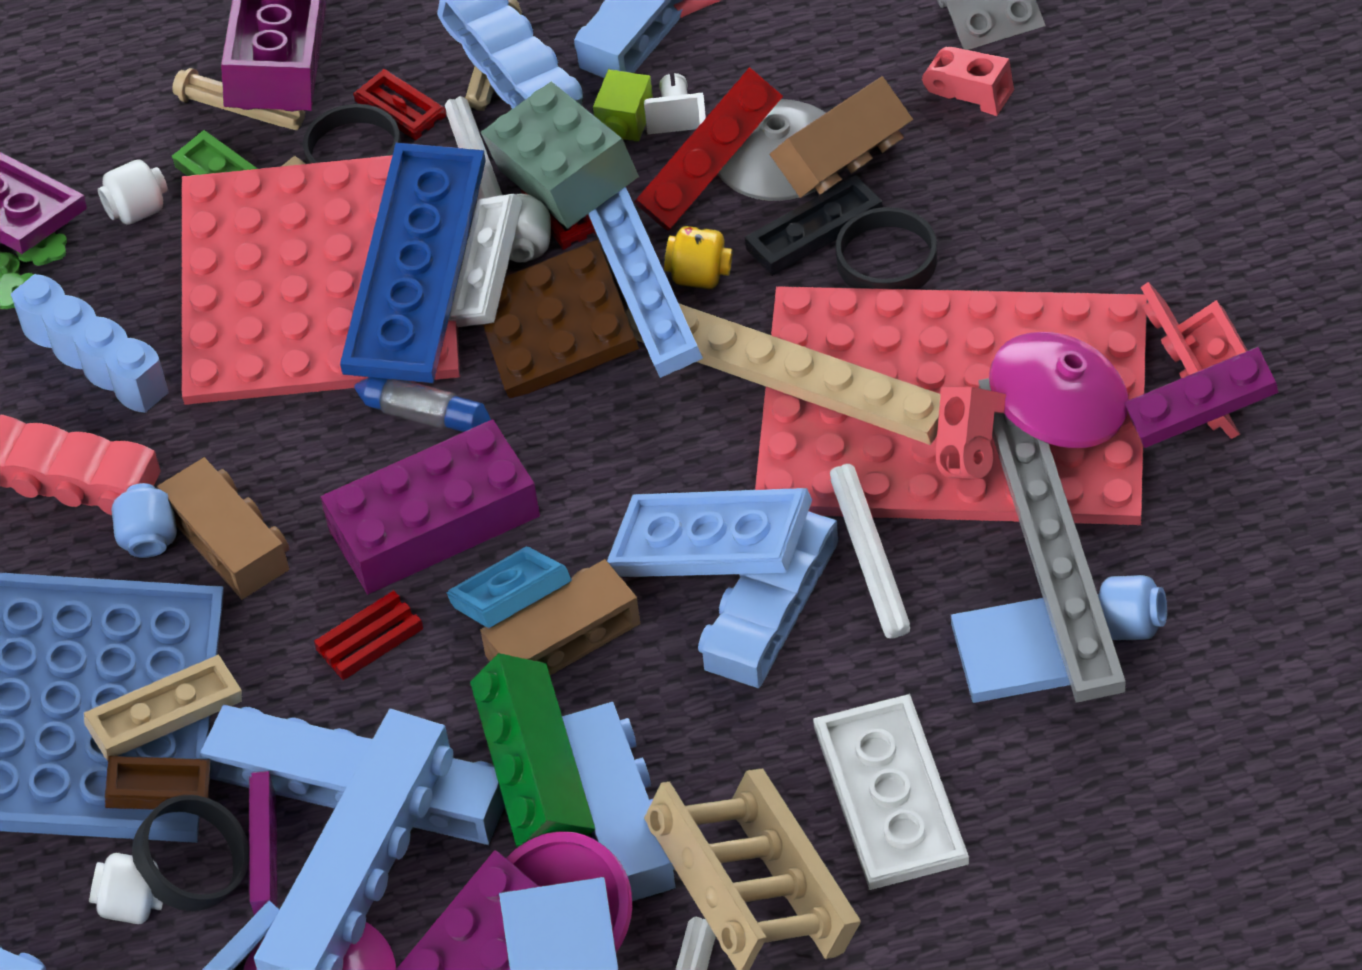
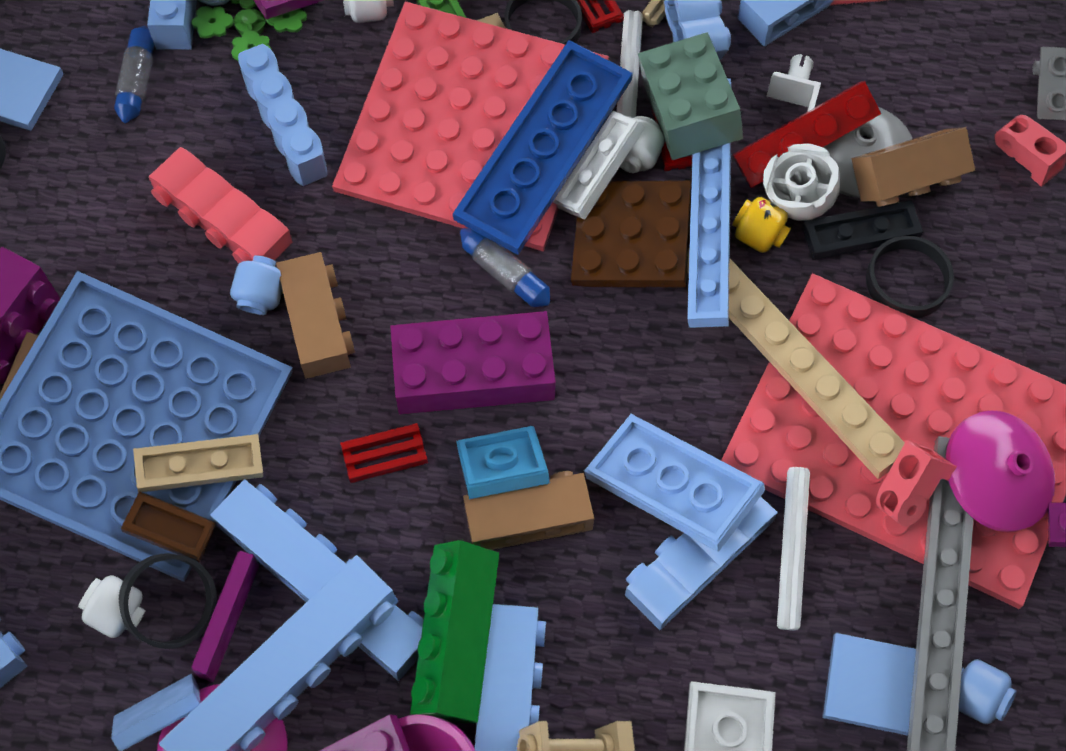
camera: 15 degrees right, 15 degrees up
(622, 103) = (755, 65): lime brick -> none
(725, 195) = (802, 181): none -> white cylinder

